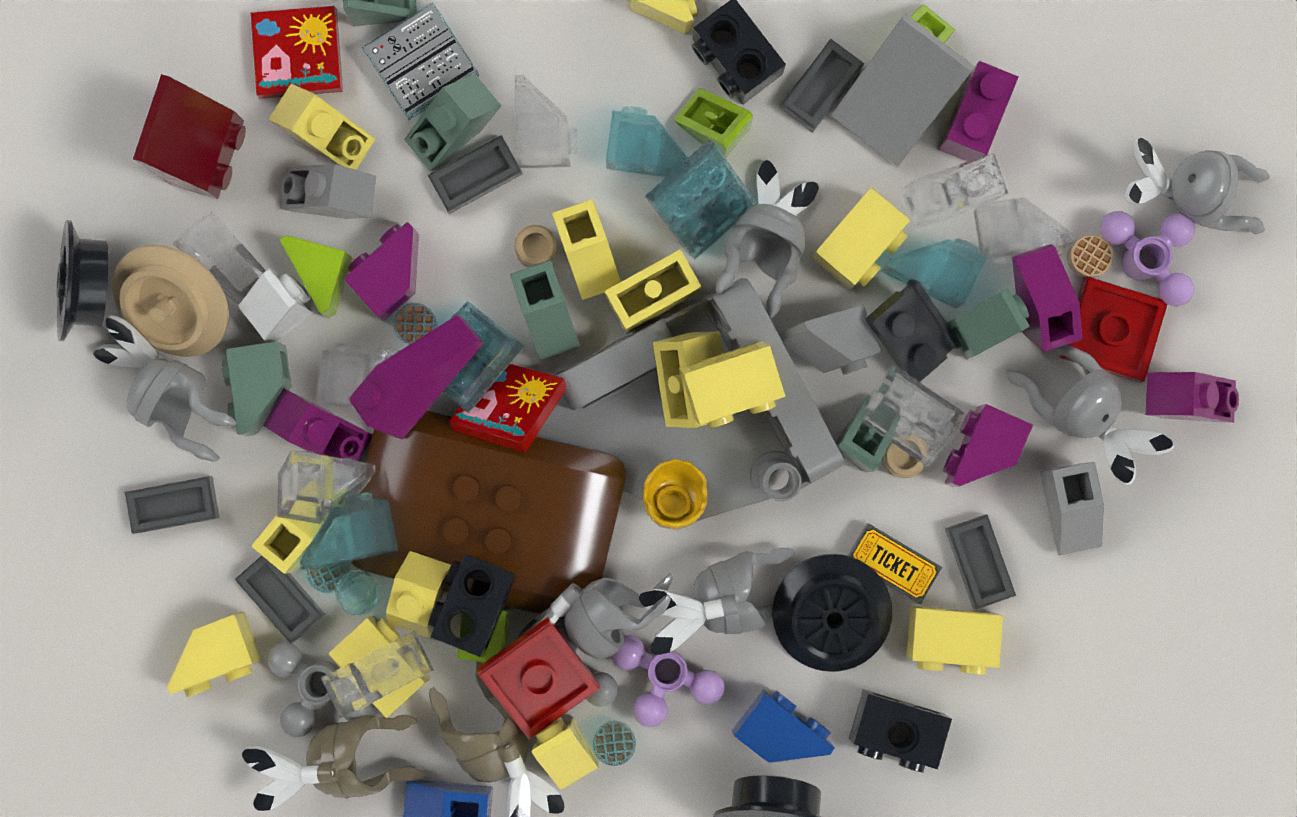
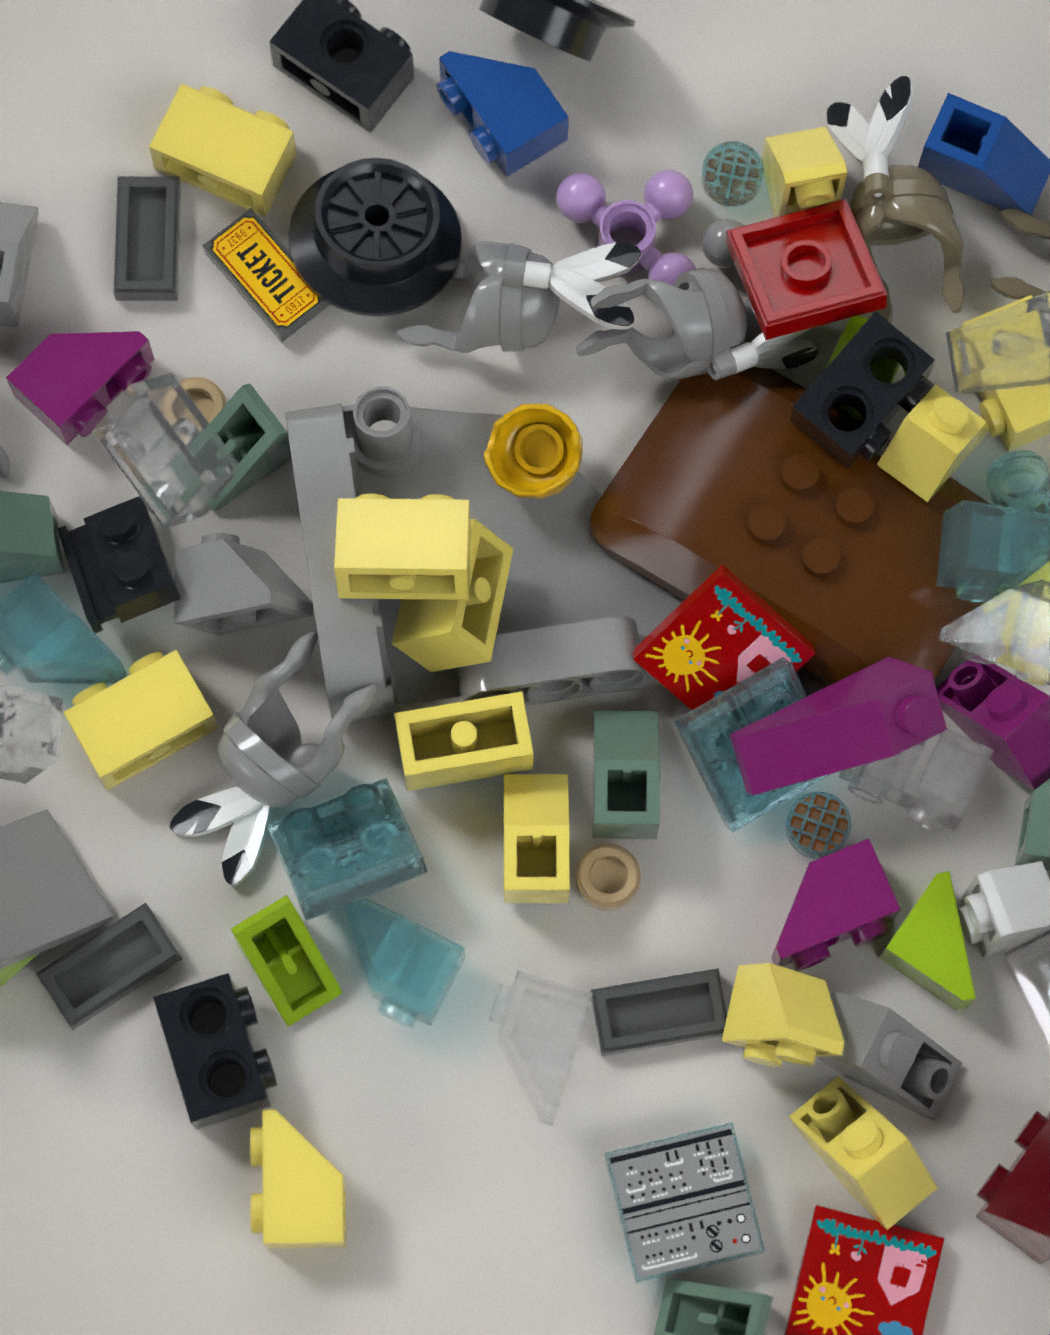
camera: 160 degrees left, 10 degrees down
(394, 186) = (781, 1016): none -> light yellow slope
(452, 120) = (666, 1094): sand green slope -> none

